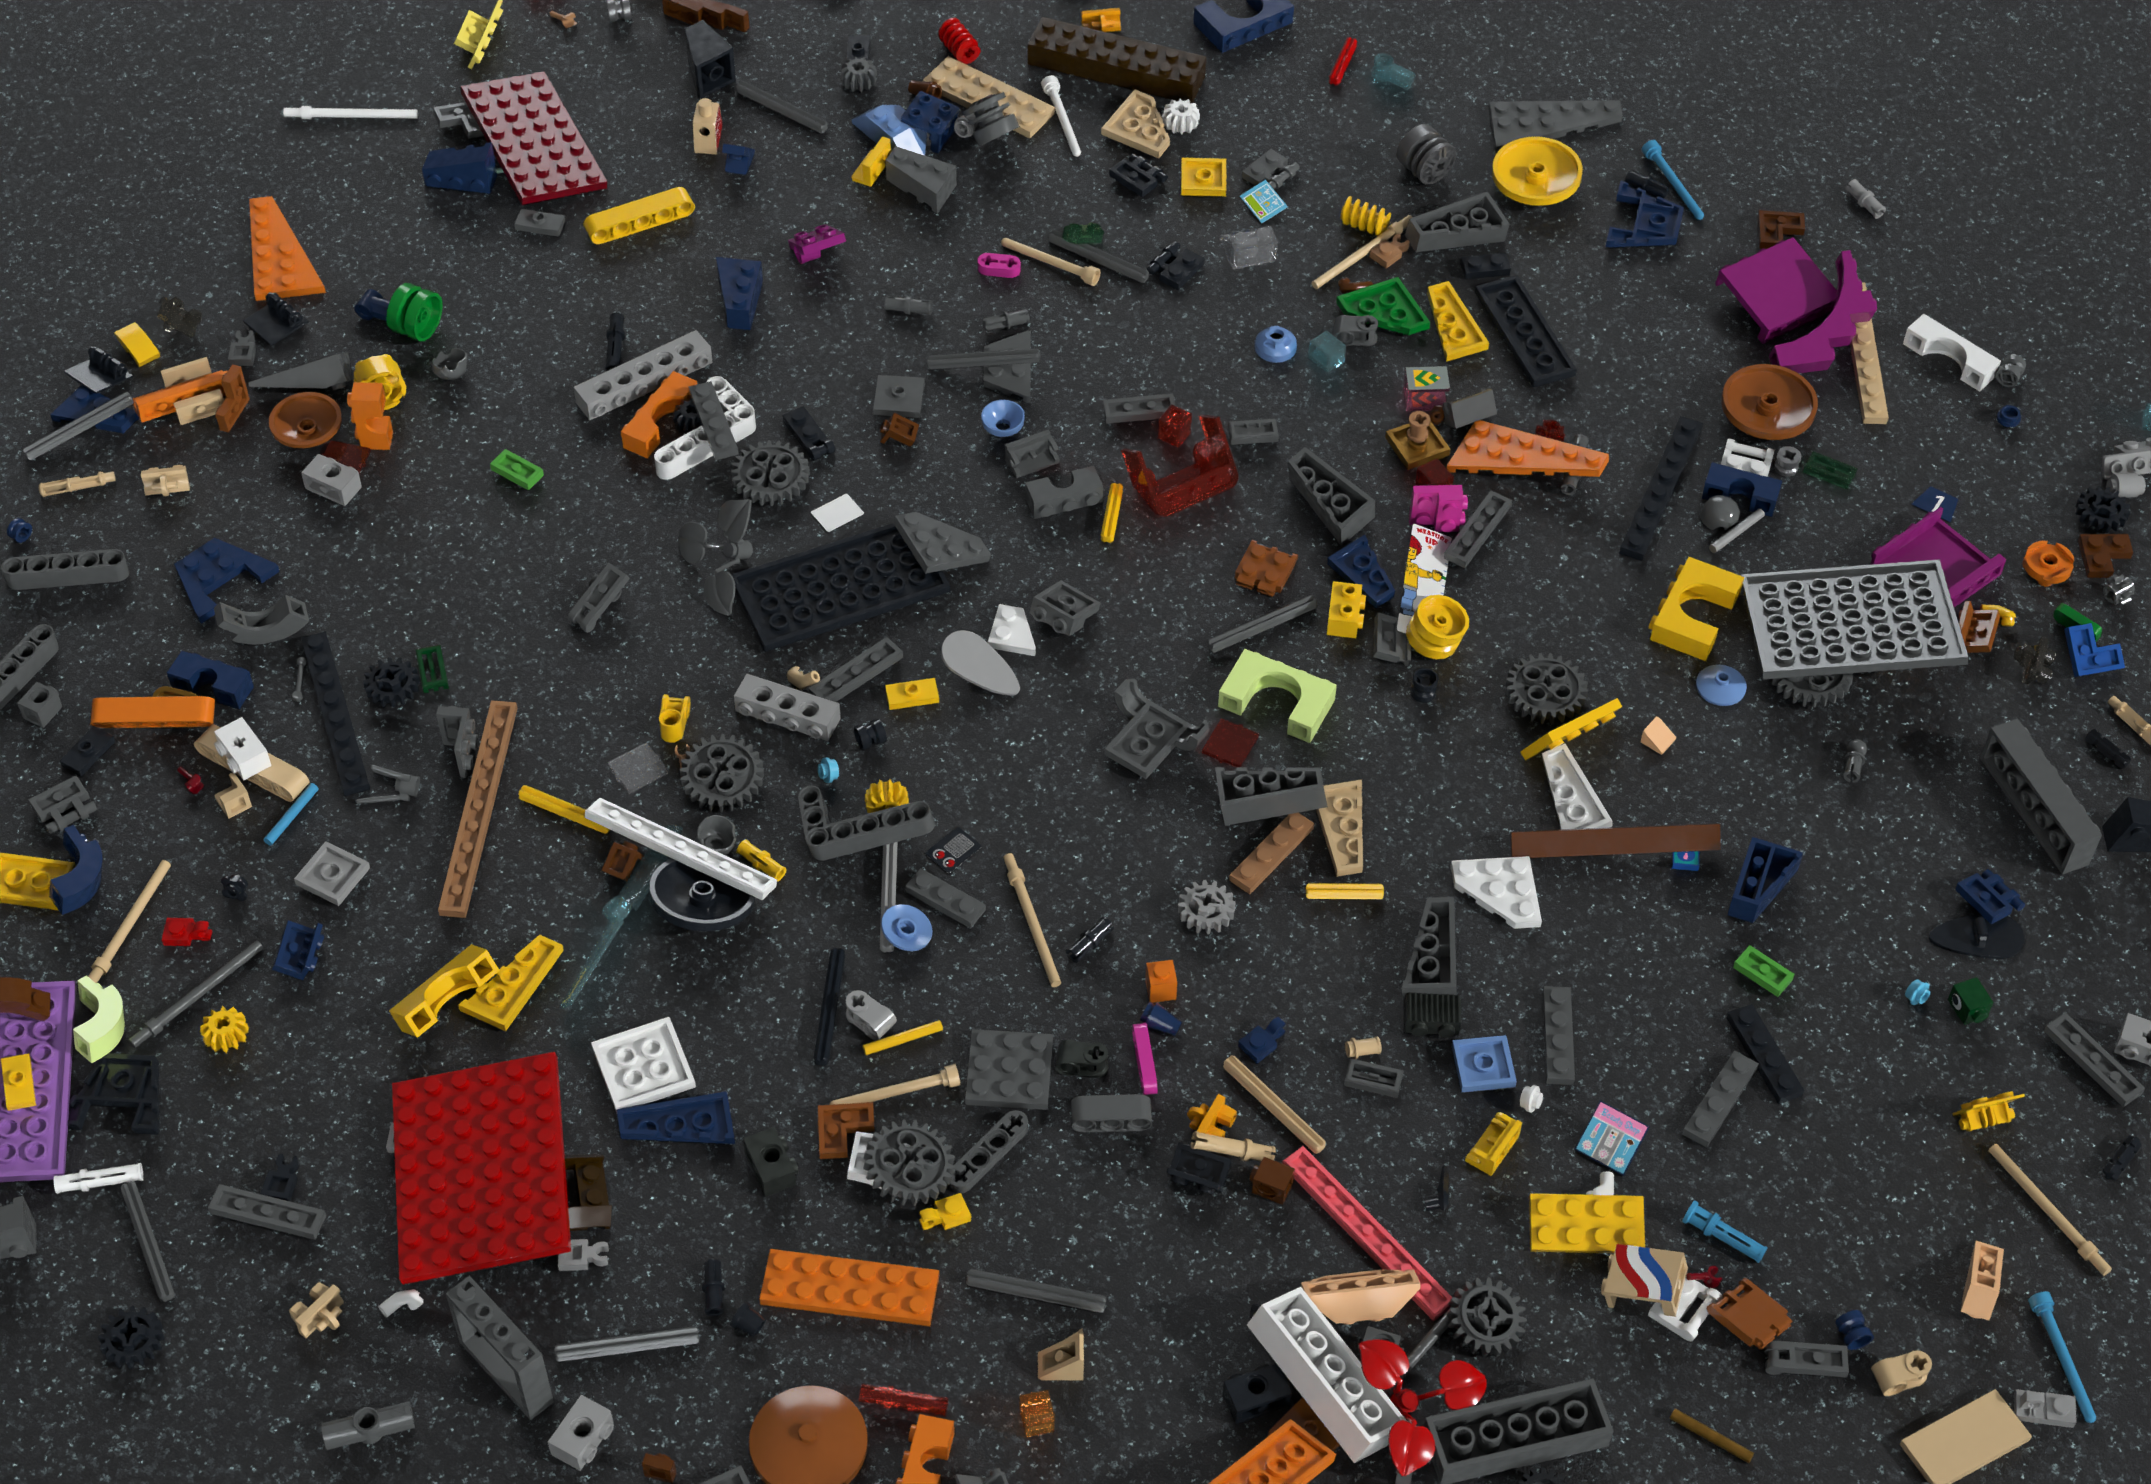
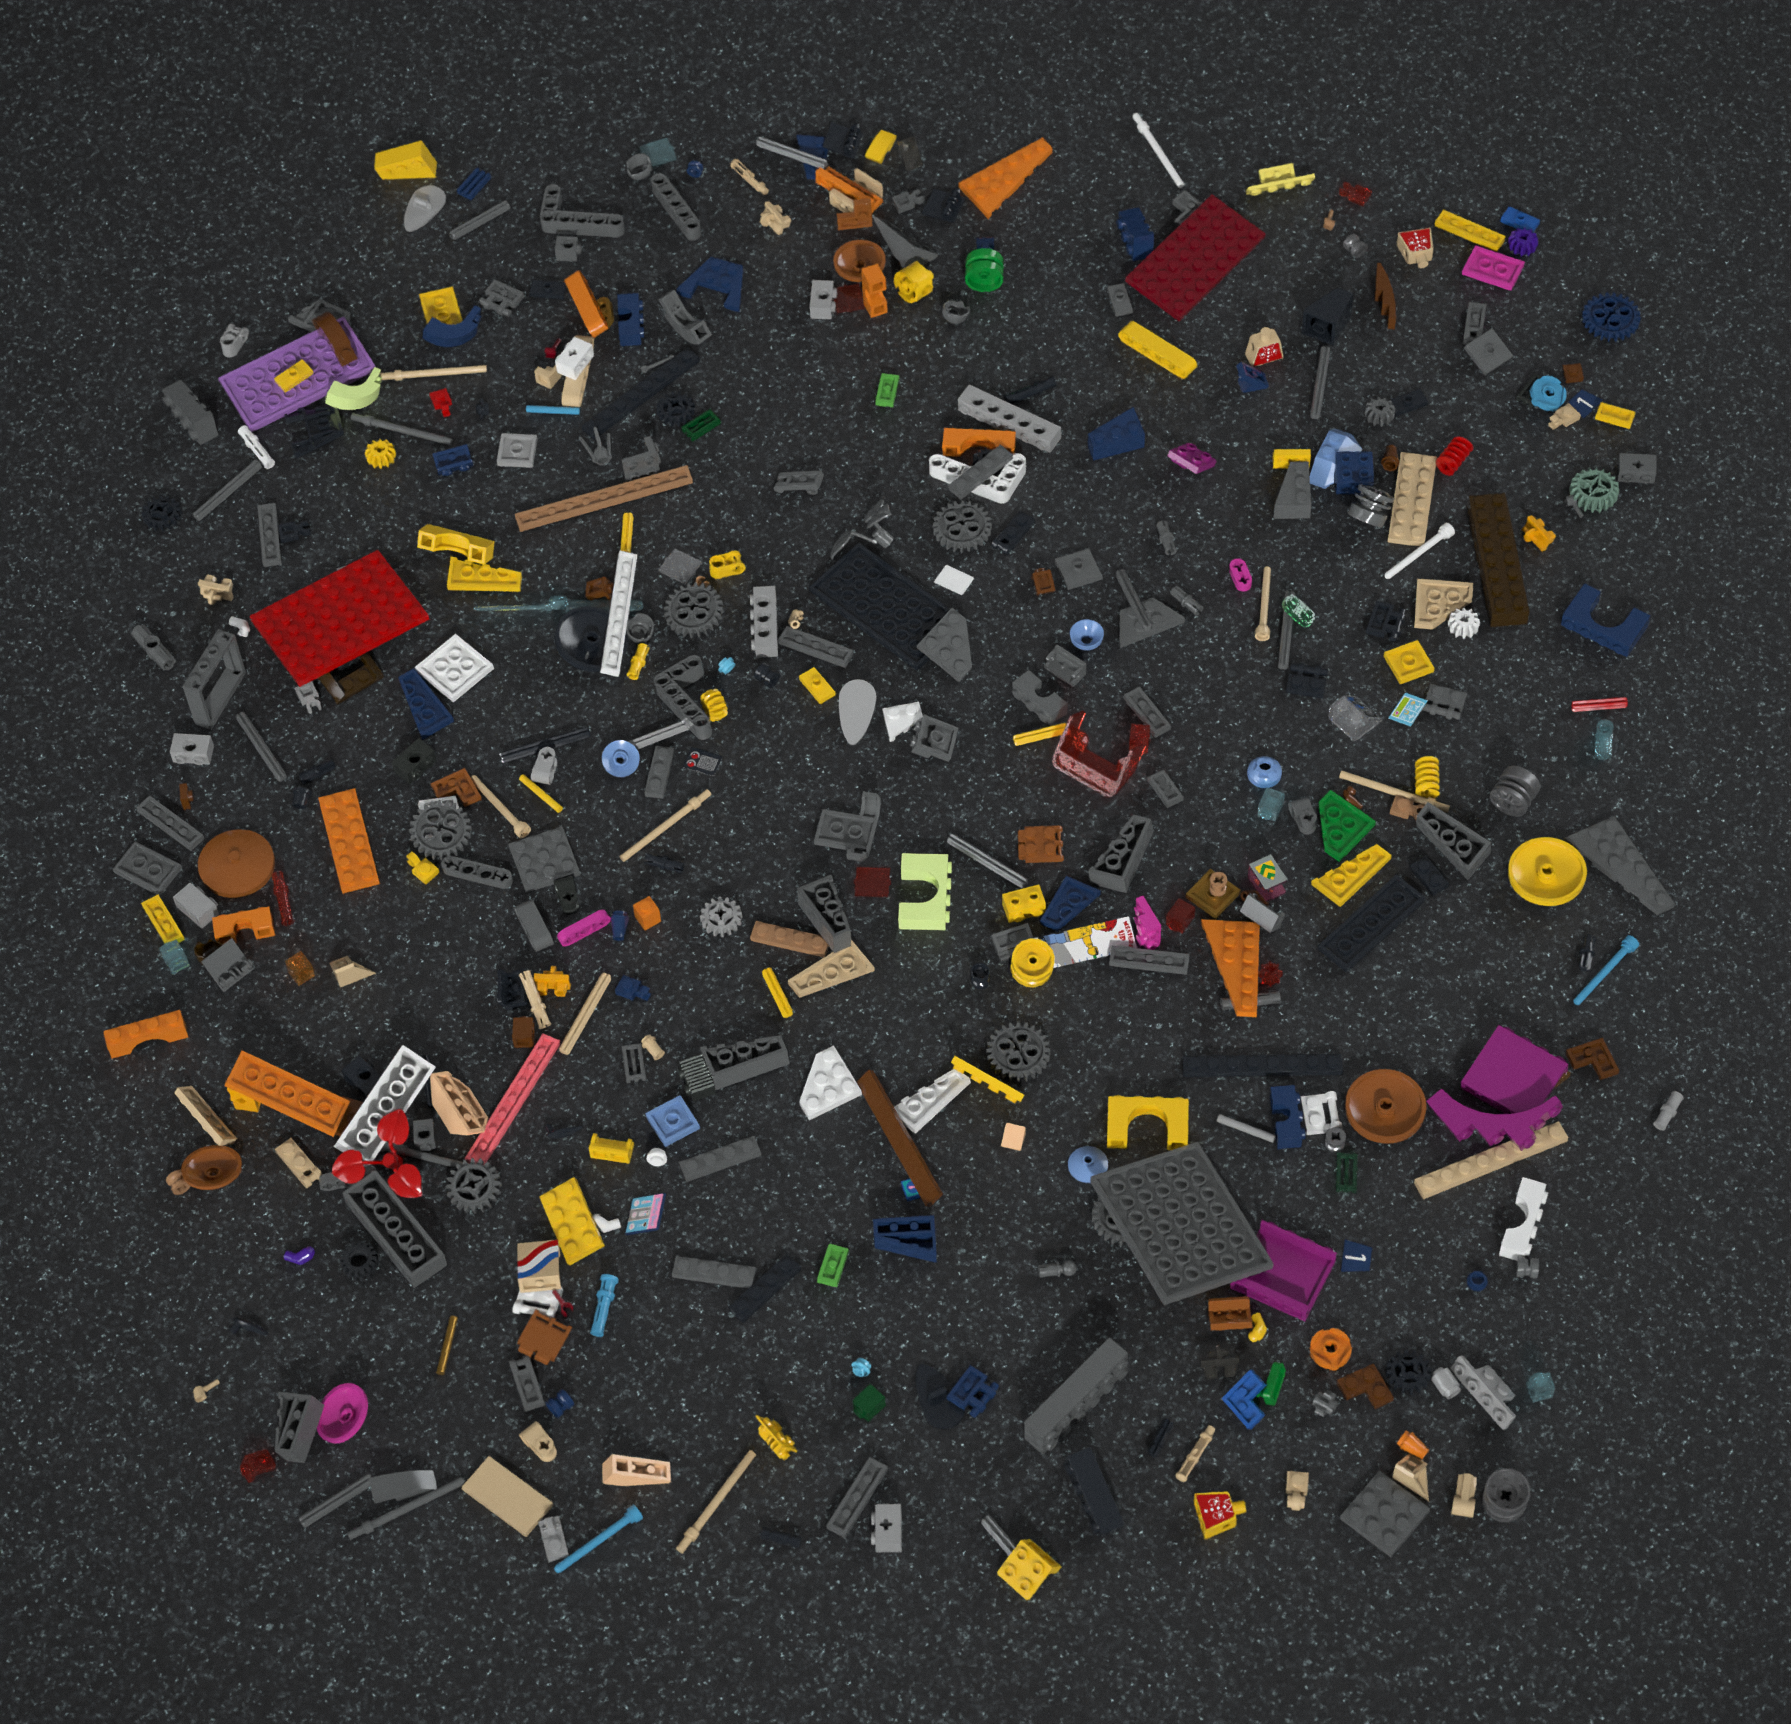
camera: 70 degrees right, 5 degrees up
(1036, 1290) = (388, 937): dark grey axle -> none
(1655, 223) = (1545, 972): dark blue wing -> none
(1719, 512) = (1256, 1111): dark grey hair -> none

